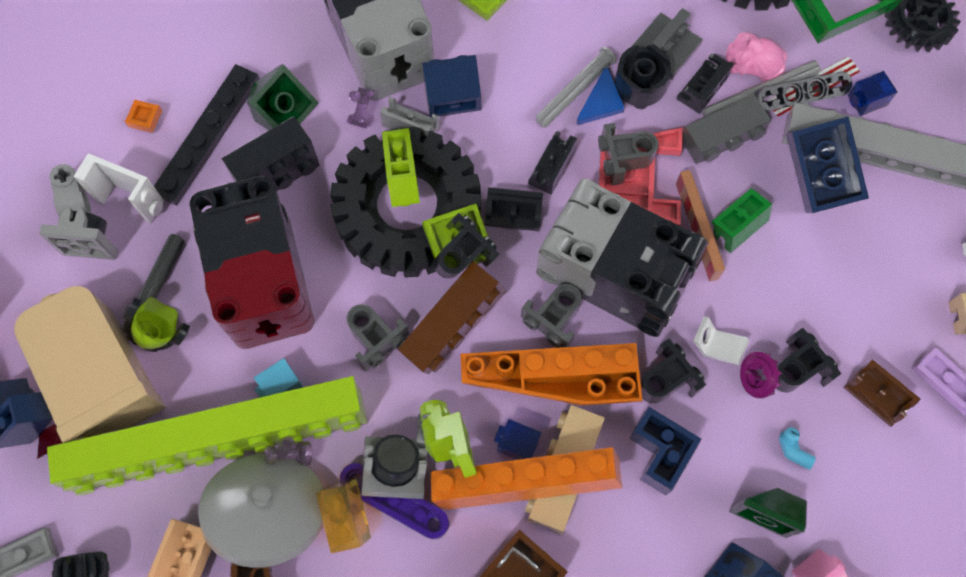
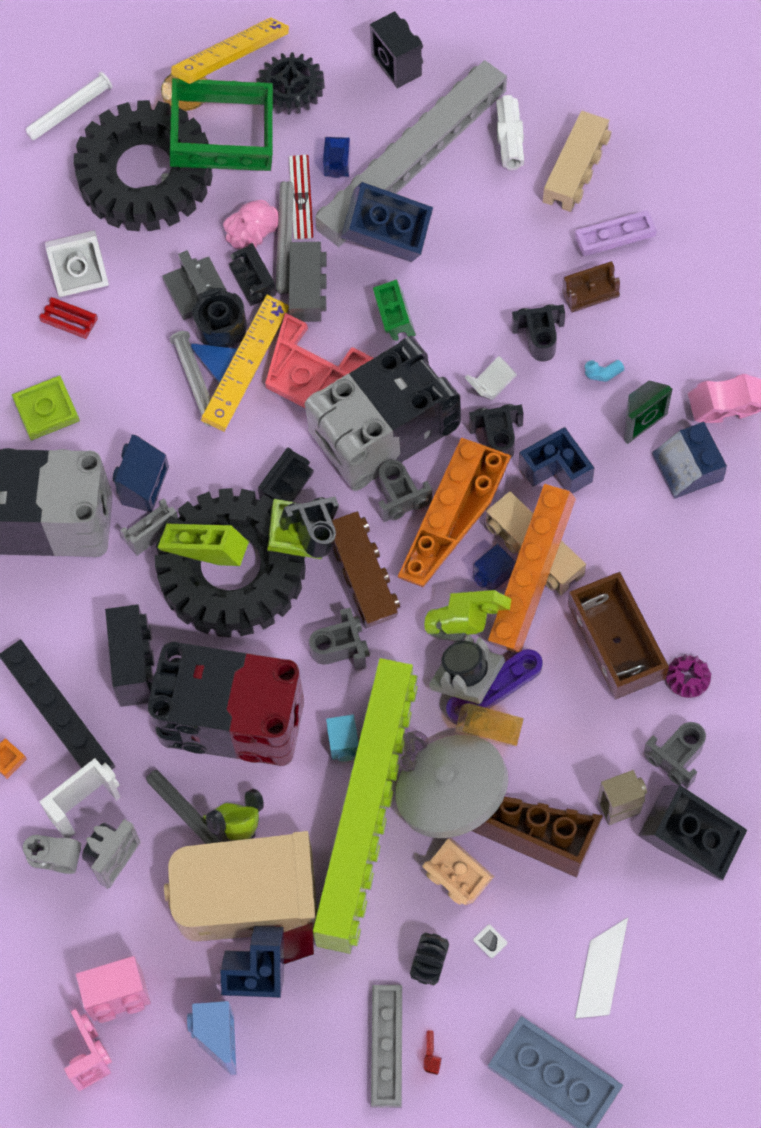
camera: 60 degrees left, 5 degrees down
(278, 98) = (66, 628): dark green slope -> none
(361, 98) = (105, 555): clear purple piece -> none
(553, 163) = (259, 429): black hinge -> none
(622, 152) = (287, 366): dark grey pin -> none
(627, 118) = (245, 363): none -> yellow tile
(699, 224) = (369, 341): nougat tile -> none
(752, 380) = (532, 373): magenta gear -> none
(802, 90) = (300, 204): black beam -> none

